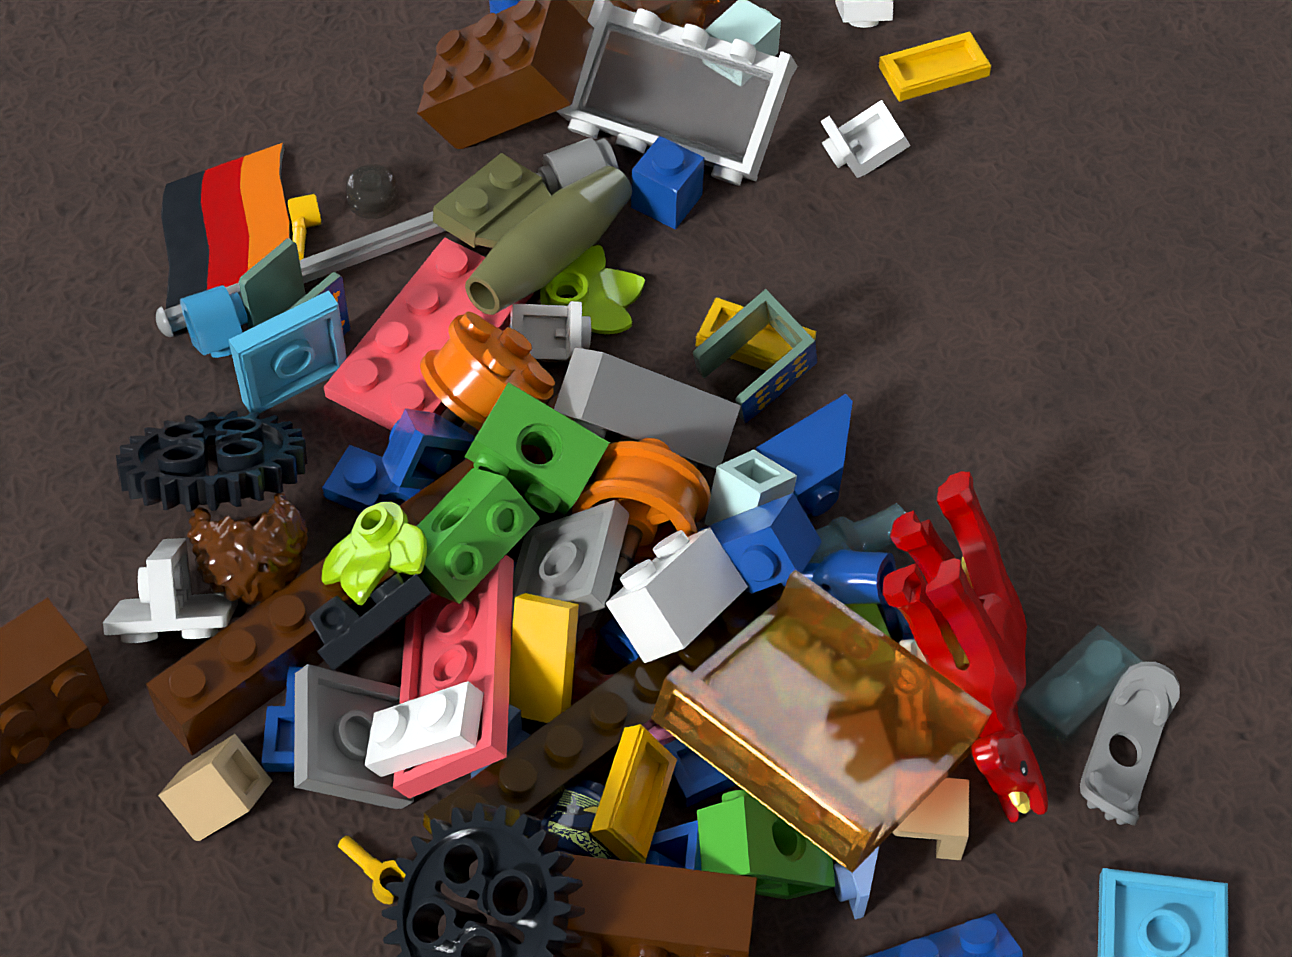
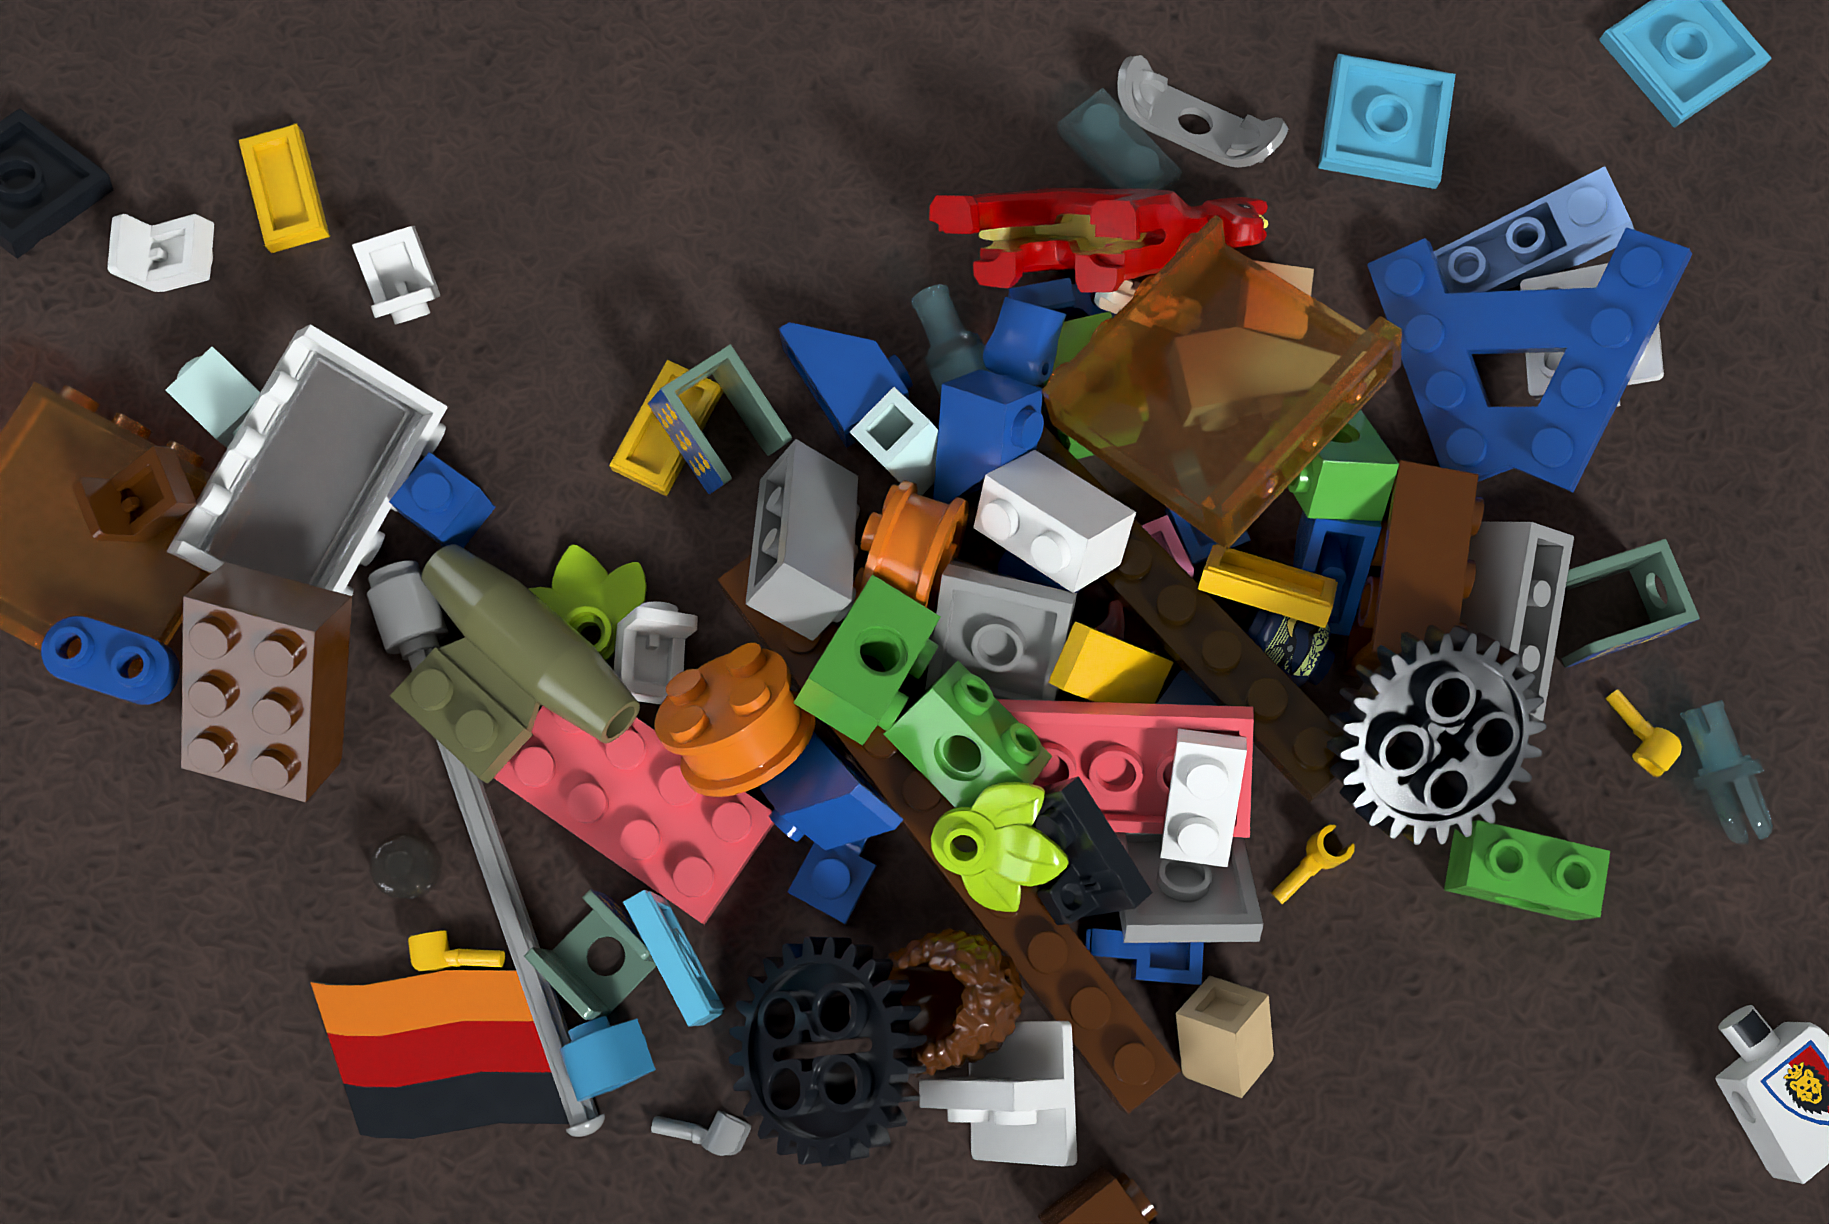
camera: 85 degrees left, 20 degrees up
(150, 410) = (723, 1137): none -> light grey hand

